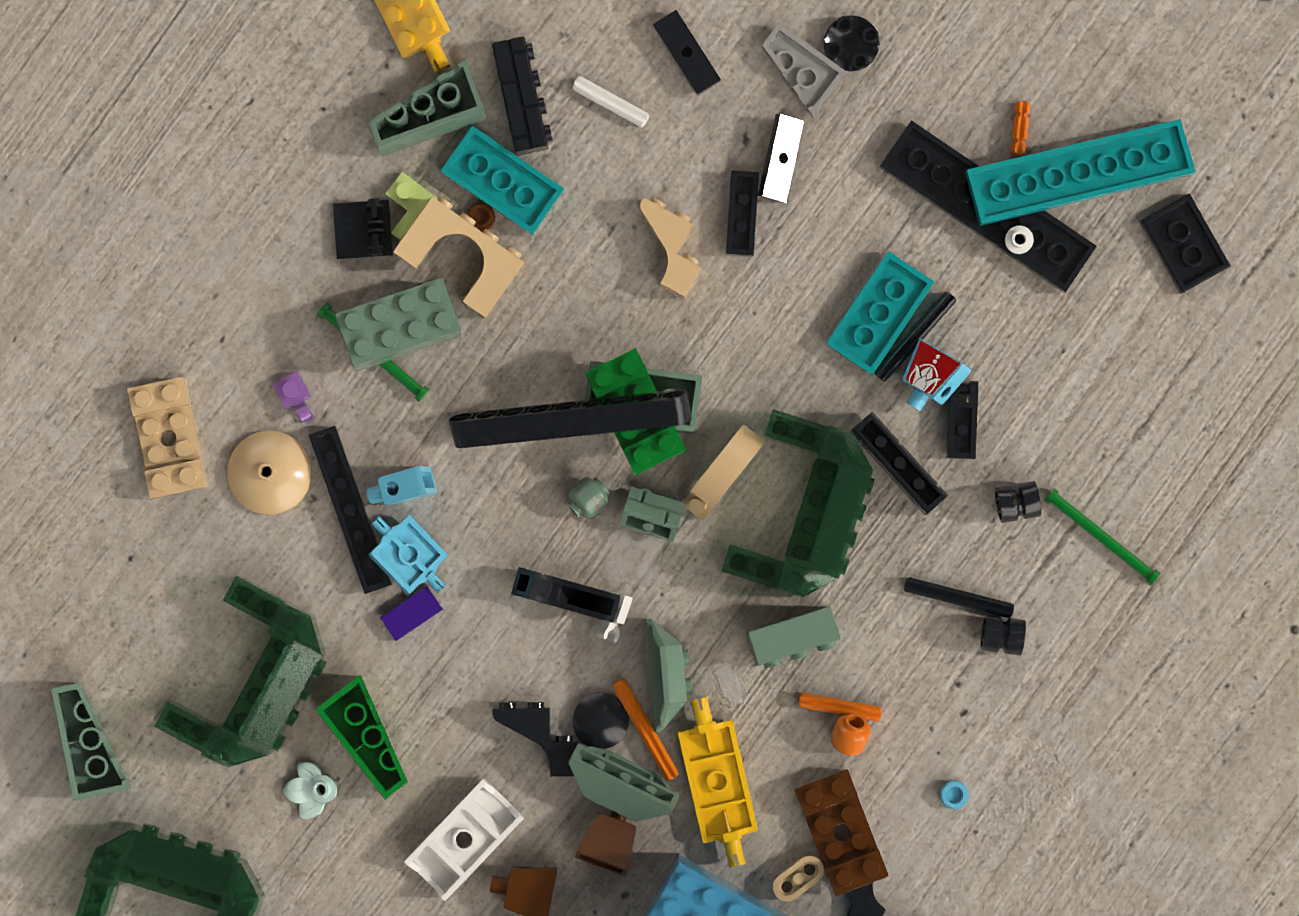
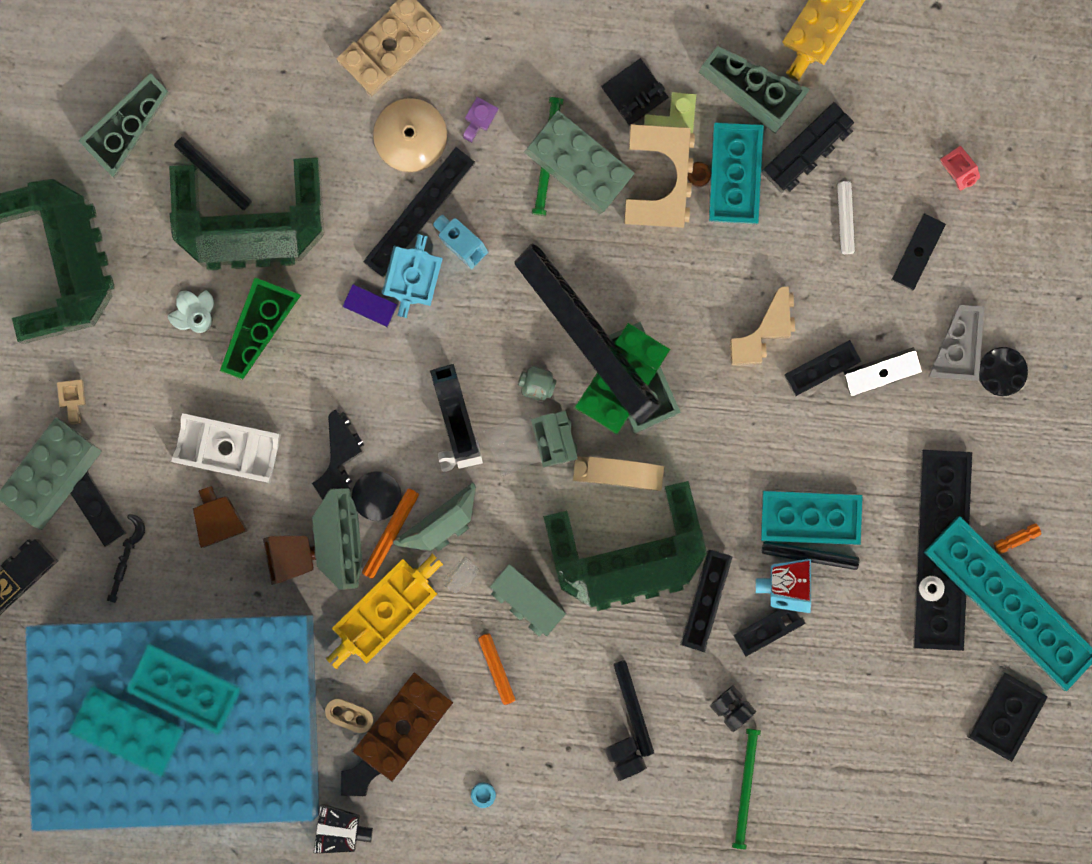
camera: 60 degrees right, 0 degrees up
(187, 687) = (213, 173): none -> black axle
(850, 734) = (480, 689): orange head -> none

